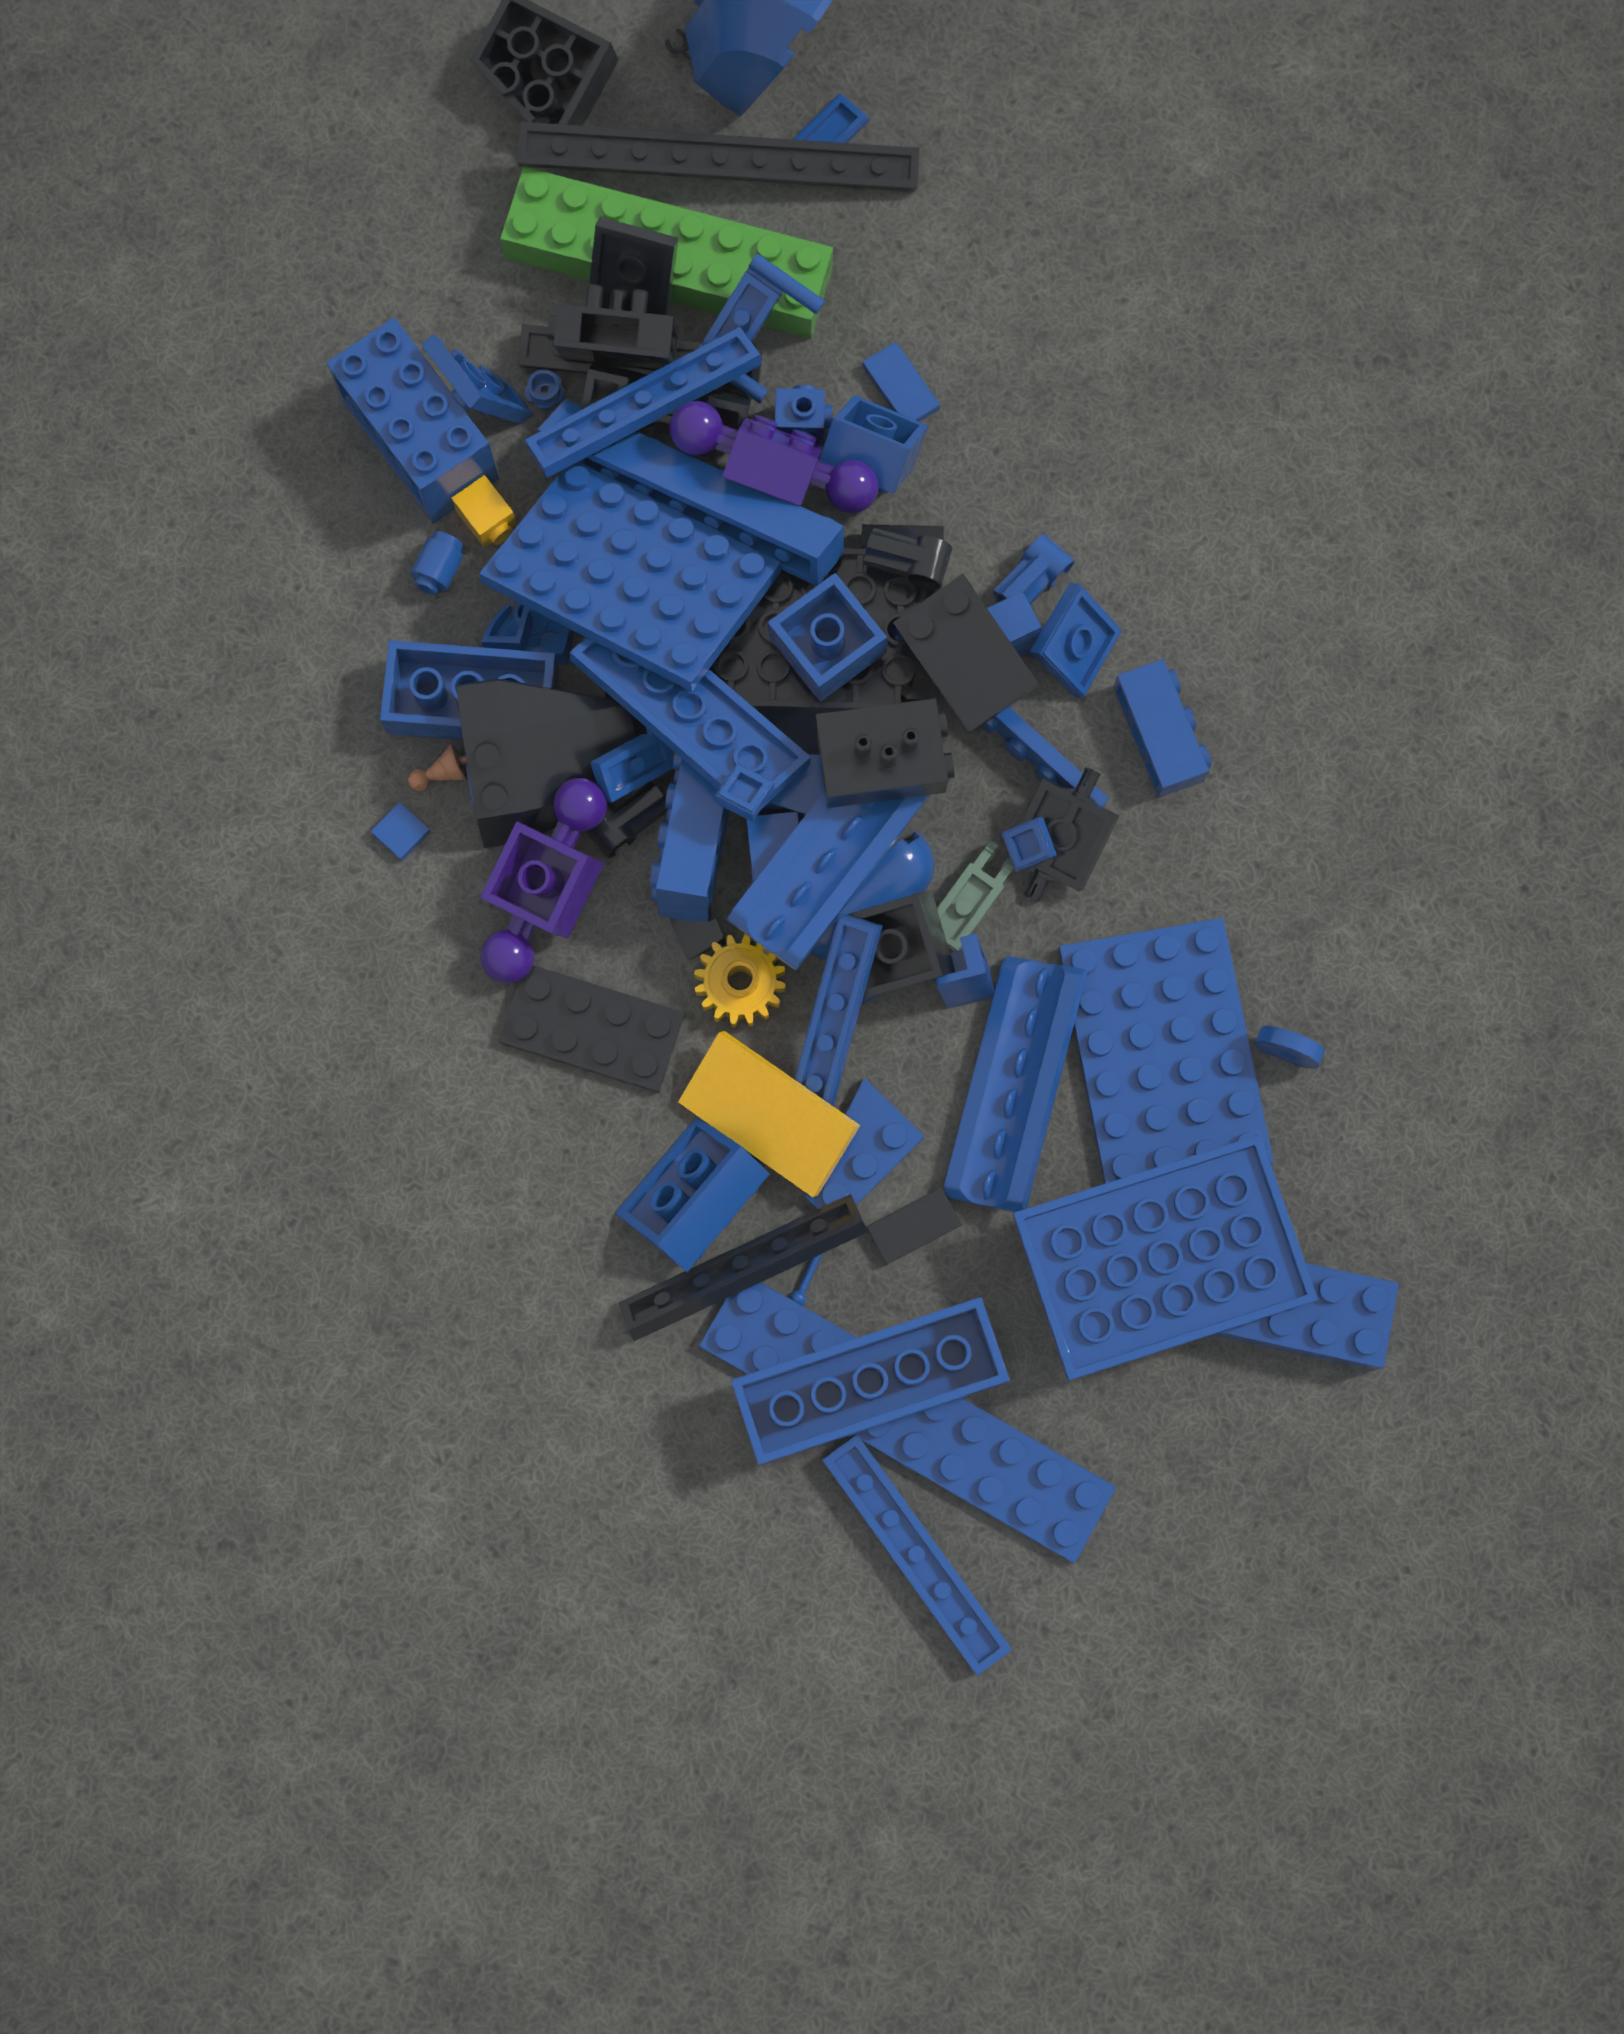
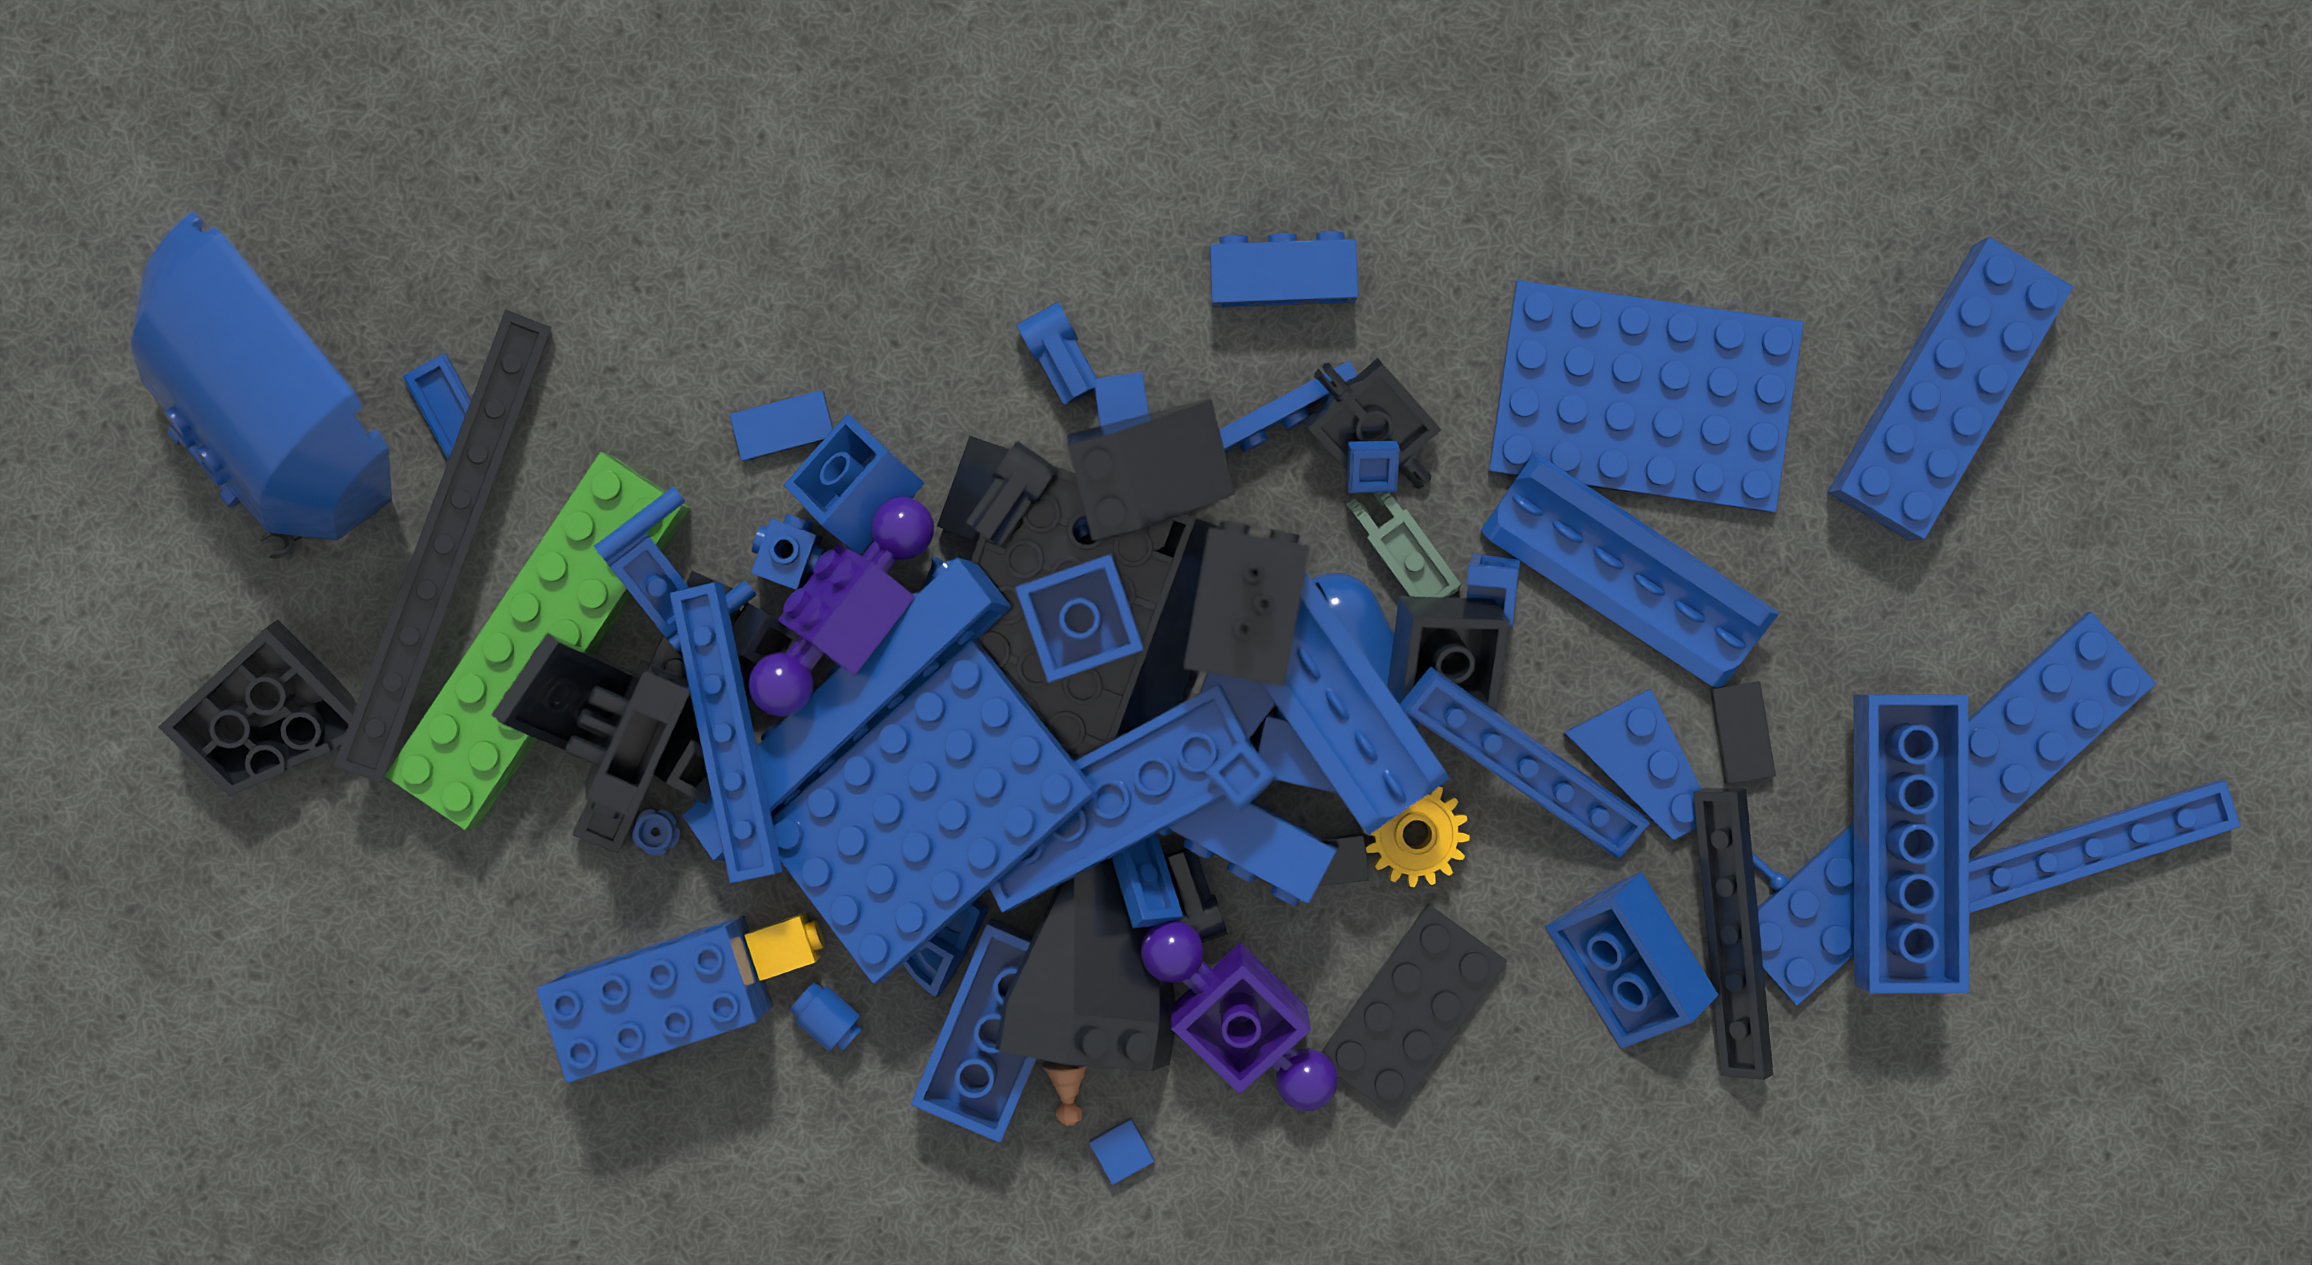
camera: 70 degrees left, 10 degrees up
(475, 386) = (645, 913): blue wing -> none
(769, 1113) = (1577, 851): yellow tile -> none
(1076, 640) = (1155, 333): blue tile -> none
(1164, 1257) = (1888, 481): blue plate -> none
(1290, 1046) = (1690, 260): blue piece -> none

